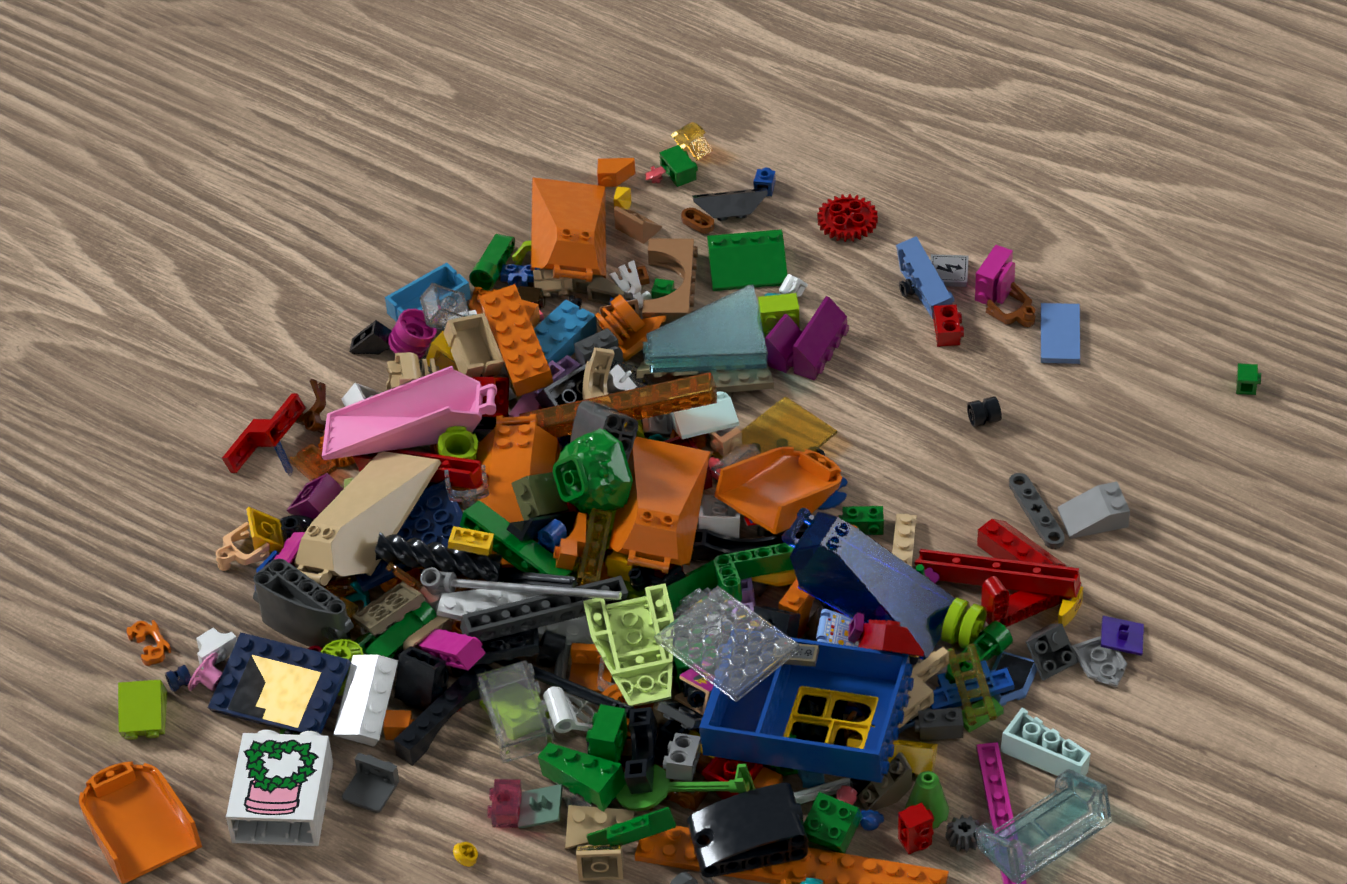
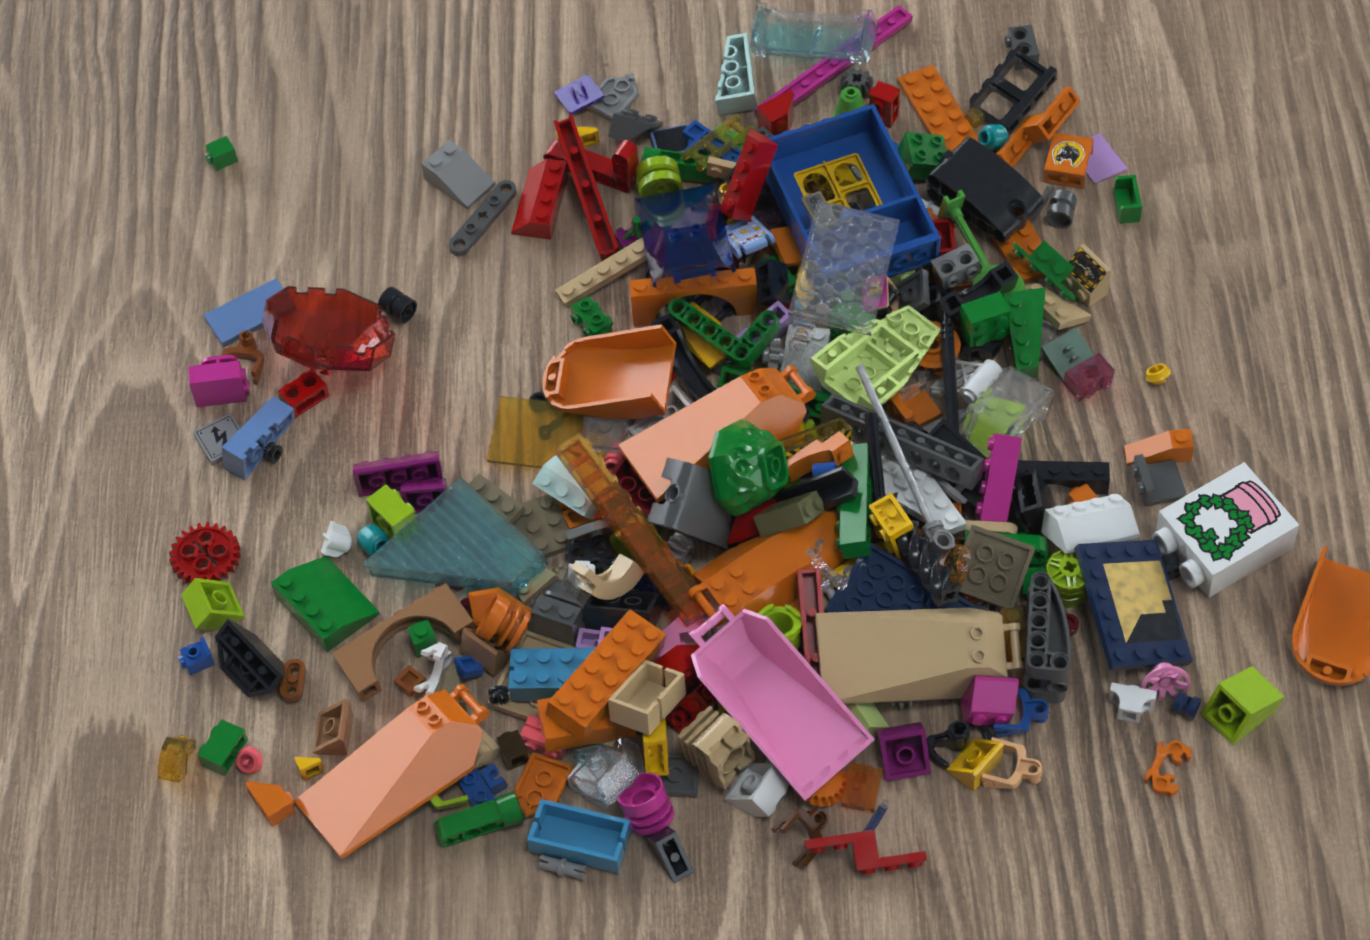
camera: 125 degrees left, 10 degrees up
(394, 808) = (1166, 446): none -> orange slope
(799, 205) = (211, 603): none -> lime slope
(856, 627) = (737, 221): magenta tile -> none
(962, 742) = (777, 113): none -> red slope
(992, 321) = (328, 326): none -> clear red windscreen

